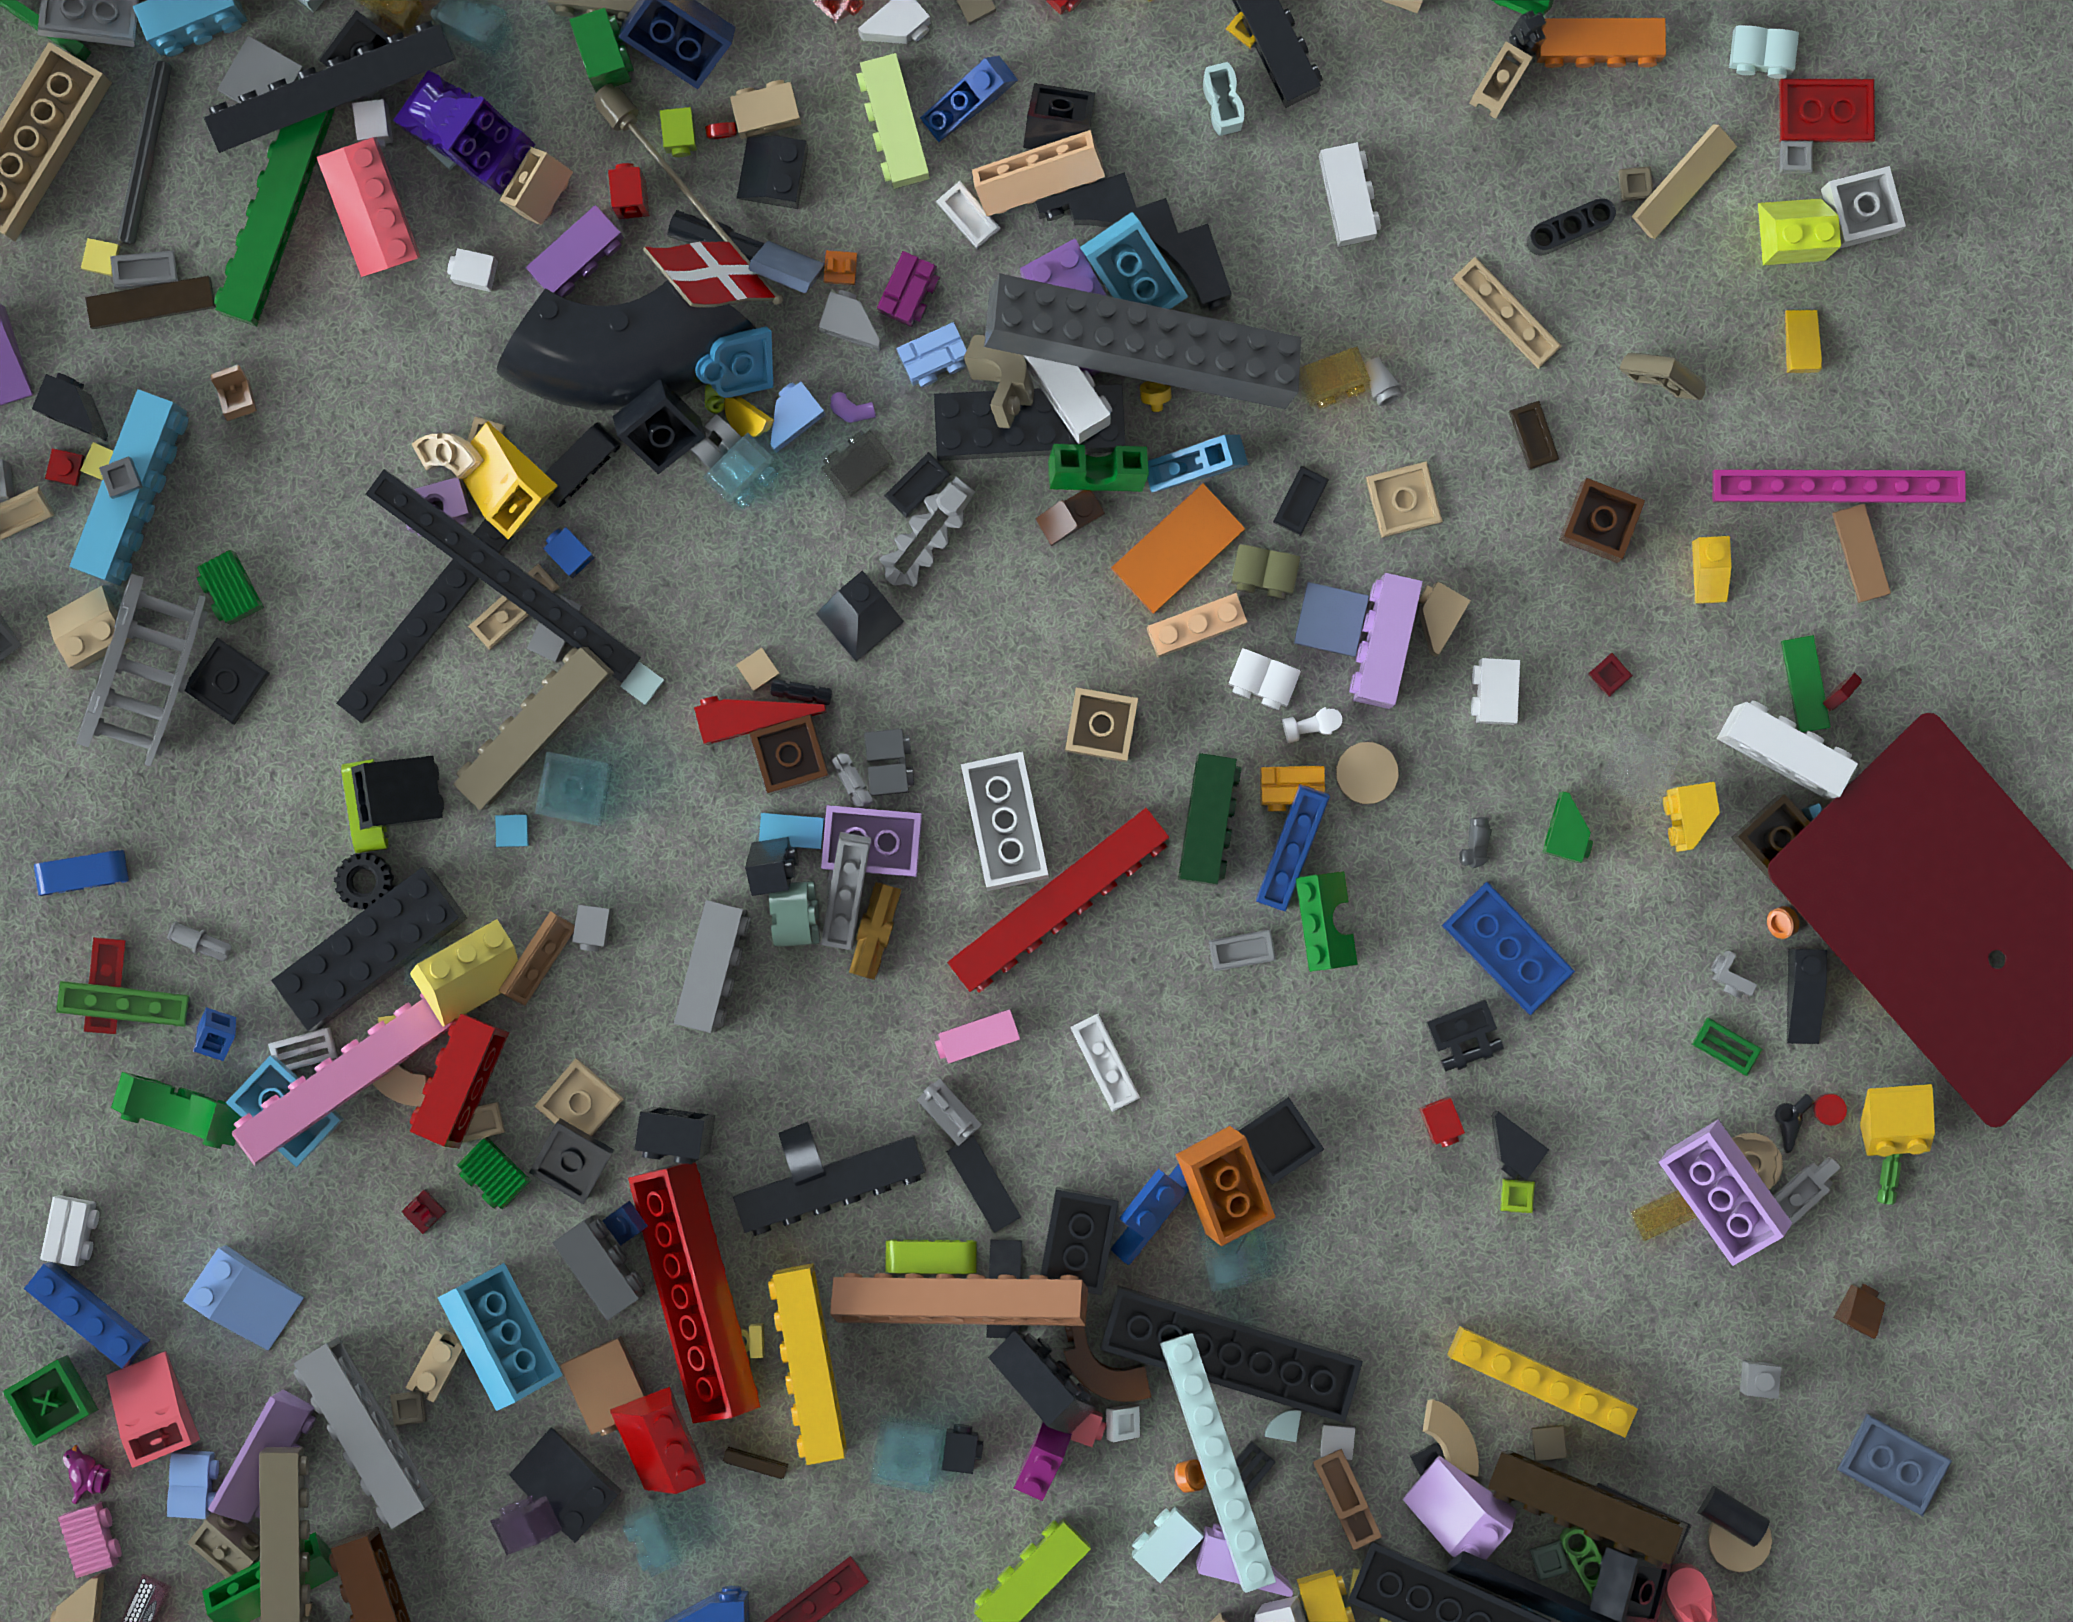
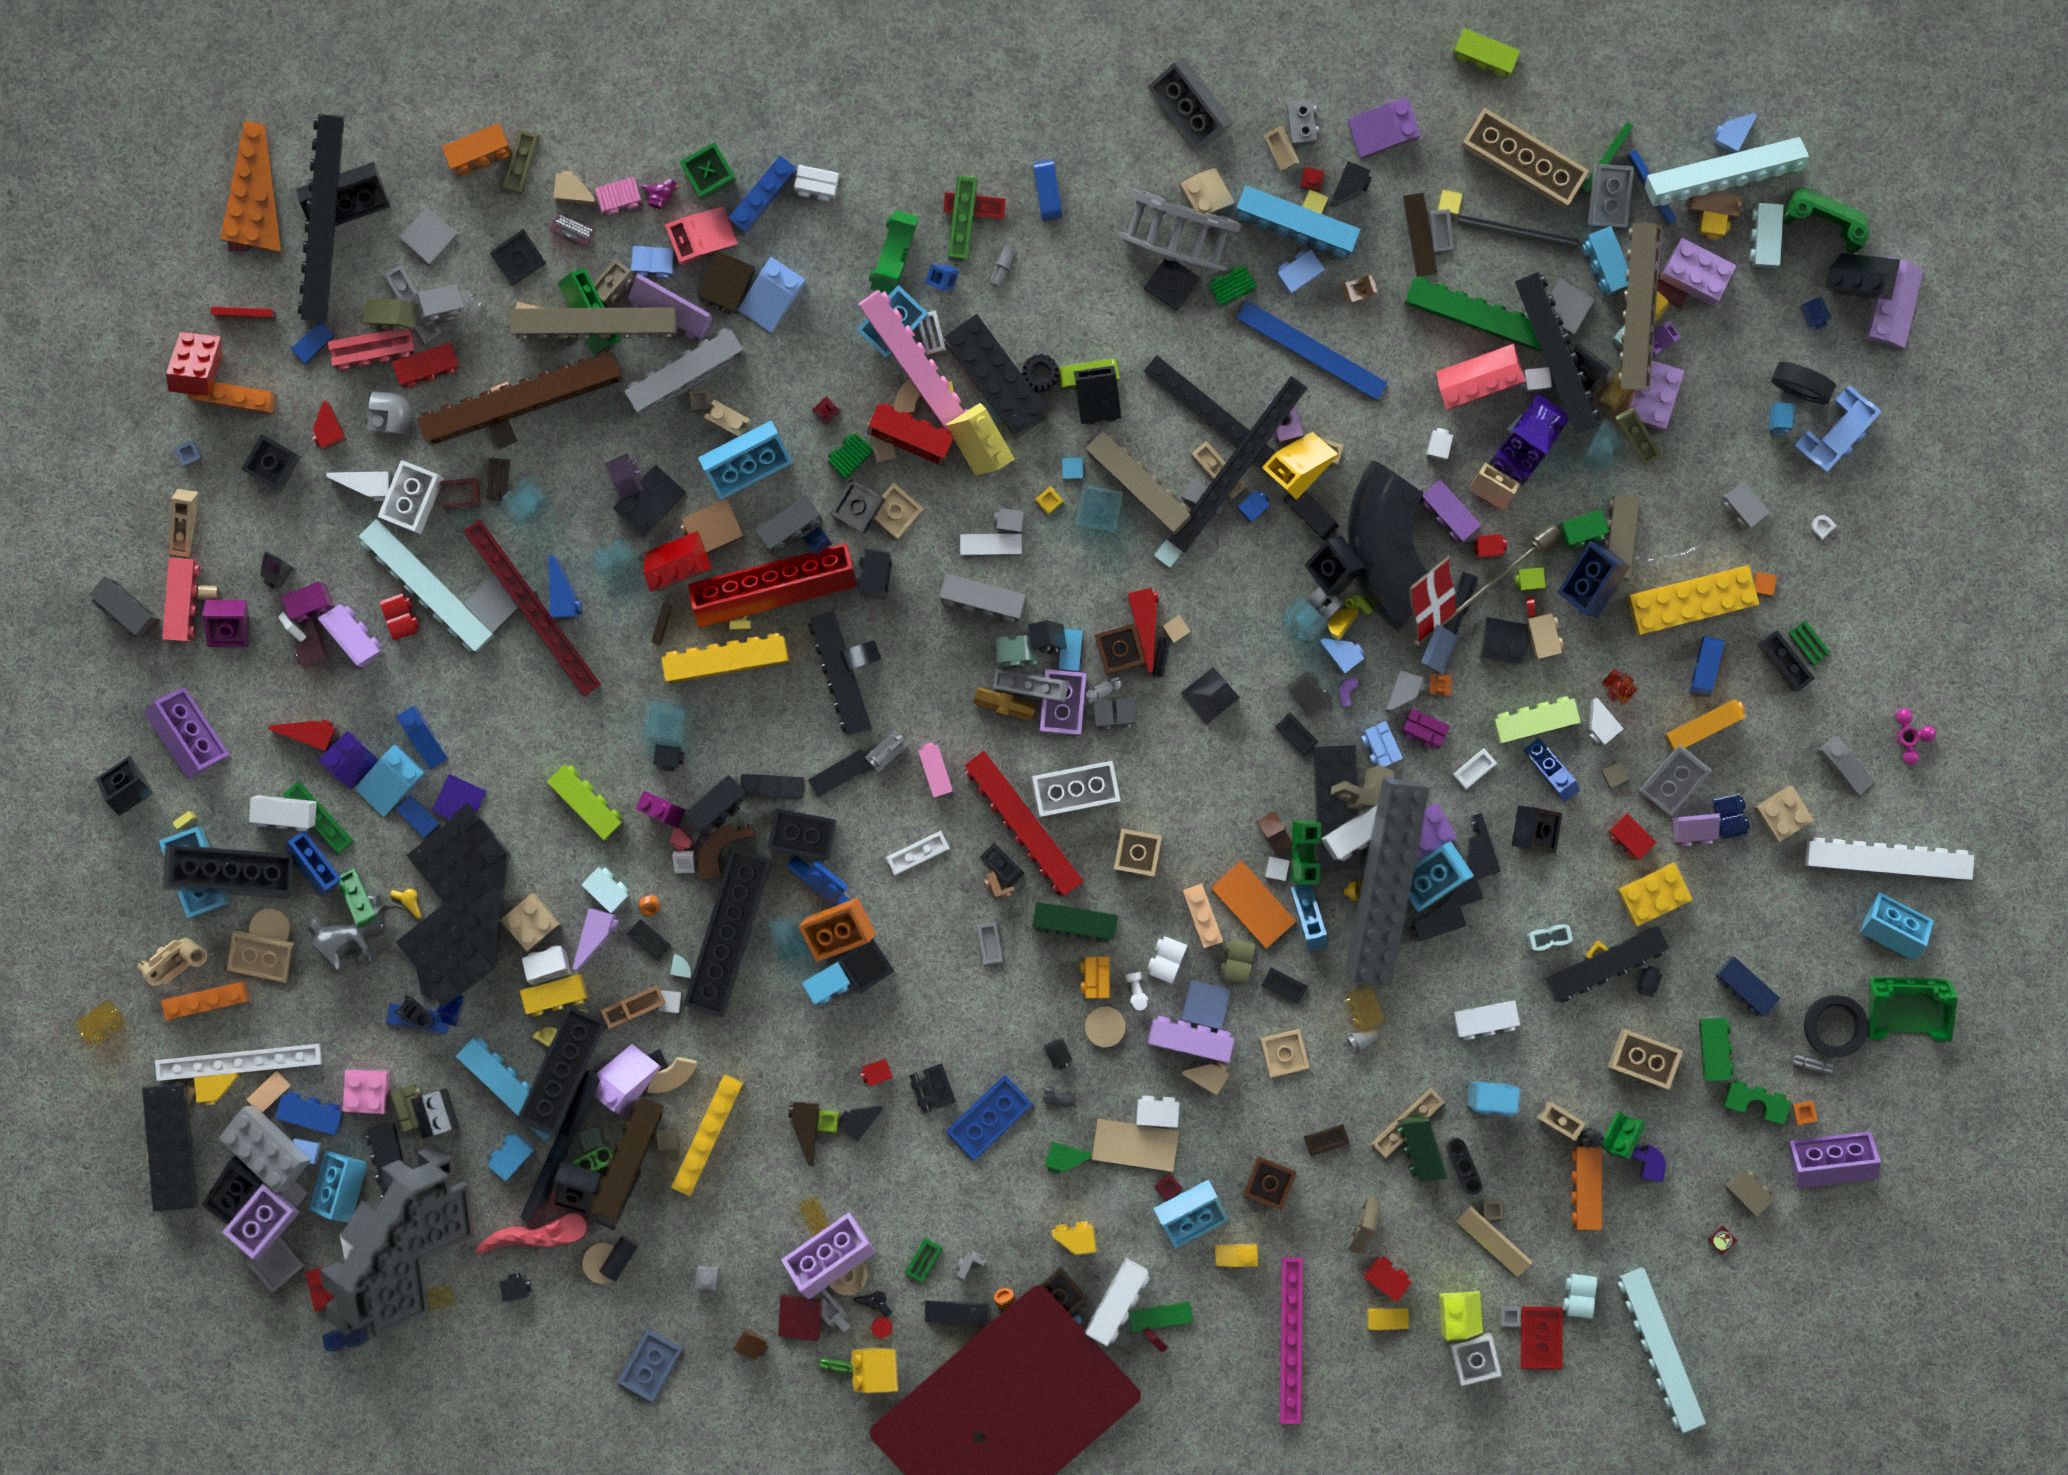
camera: 90 degrees right, 0 degrees up
(120, 477) = (1302, 218): flat silver tile -> none
(207, 484) = (1300, 271): none -> light blue brick
(225, 1369) = (726, 283): none -> dark brown brick
(329, 466) = (1311, 350): none -> blue tile
(447, 451) = (1320, 428): tan tile -> none
(537, 958) = (989, 484): medium nougat tile -> none
(561, 865) = (1049, 500): none -> yellow tile
(629, 955) = (990, 544): none -> white tile
(739, 363) = (1376, 618): dark azure plate -> none
(931, 1257) = (793, 738): lime beam -> none
(950, 501) = (1284, 756): light grey sword -> none
(959, 1300) = (765, 756): nougat brick -> none
(1038, 173) = (1500, 814): light nougat brick -> none
(1122, 932) = (1002, 865): none -> black slope
(1123, 512) = (1277, 868): none -> white tile
(1151, 946) = (992, 884): none -> medium nougat bracket
(1218, 1463) = (660, 921): light aqua brick -> none
(1292, 847) = (1056, 976): blue tile -> none
(1308, 1201) = (826, 983): none -> medium azure brick
(1317, 901) = (1021, 992): green arch -> none
(1409, 843) = (1058, 1053): none -> black slope
(1471, 178) = (1493, 1097): none -> medium azure brick
(1523, 1231) = (804, 1122): none -> dark brown slope
(1546, 725) = (1135, 1145): none -> tan tile
(1547, 289) = (1421, 1148): none -> dark green slope
(1650, 639) = (1191, 1214): none -> medium azure slope
(1743, 341) = (1386, 1278): none -> red brick
(1818, 1235) = (799, 1317): none -> dark red tile
(1861, 553) = (1247, 1355): medium nougat tile -> none

